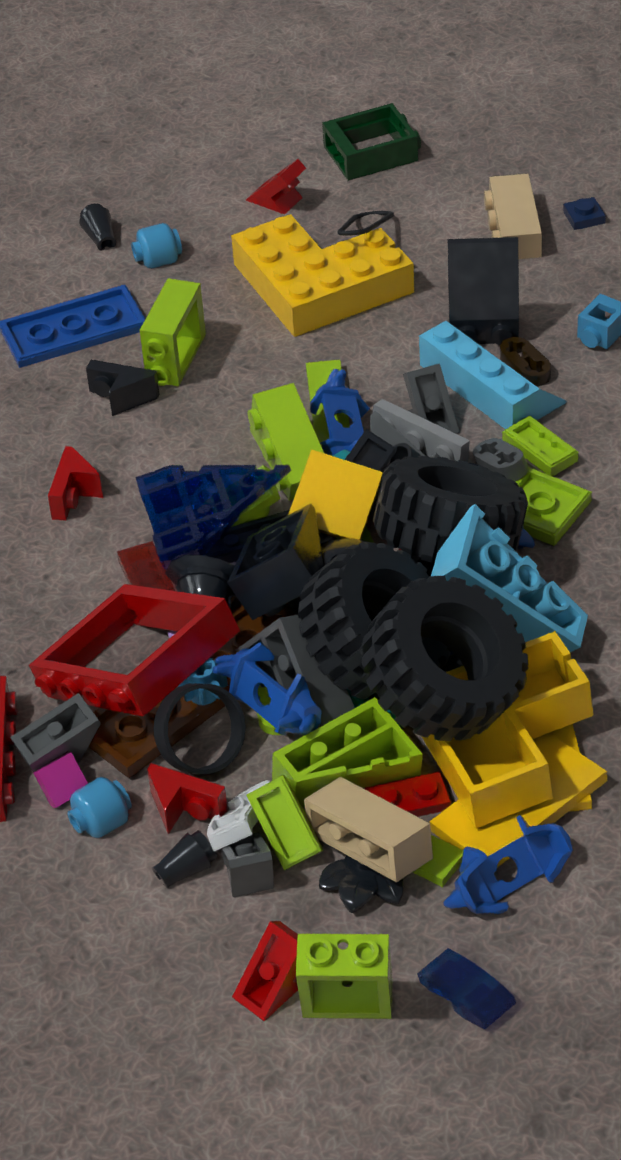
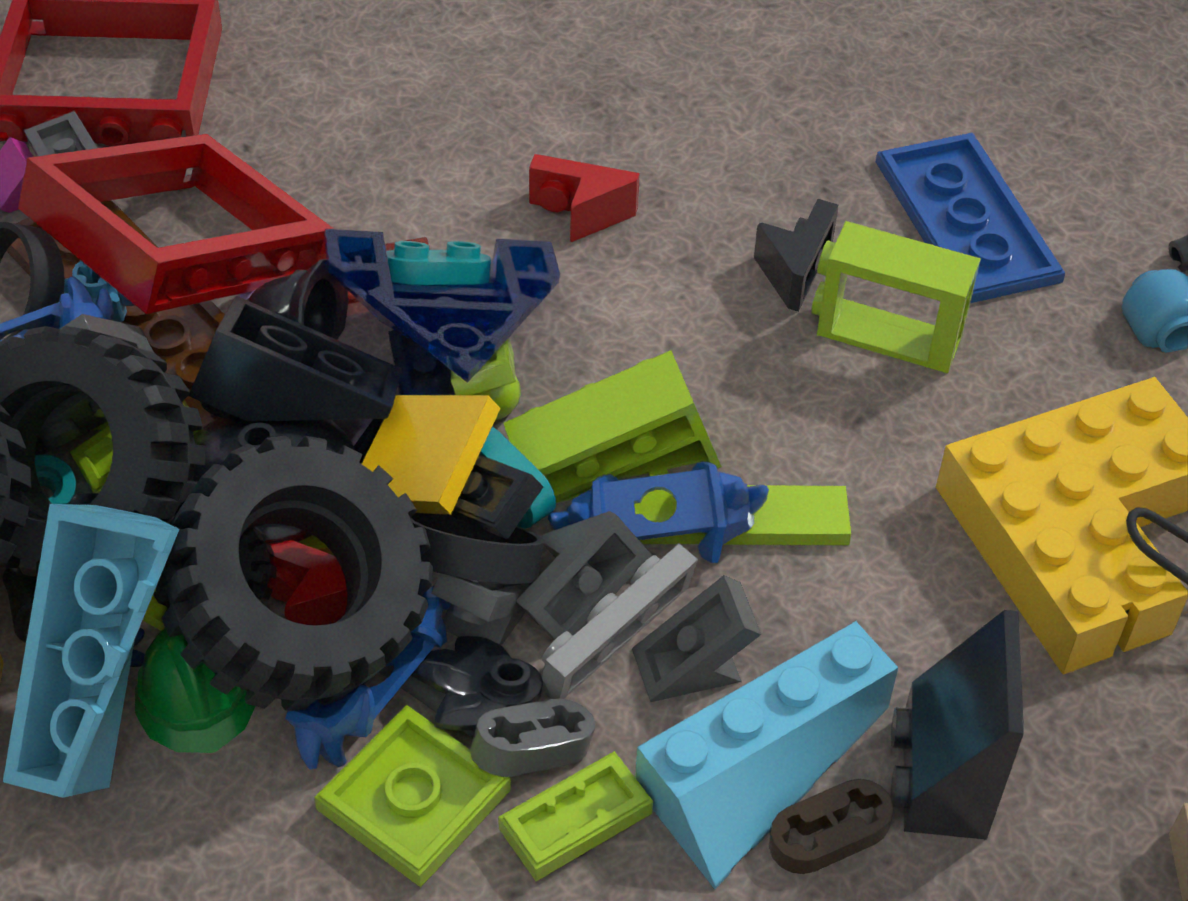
camera: 90 degrees right, 5 degrees up
(156, 518) = (458, 265): none -> teal plate

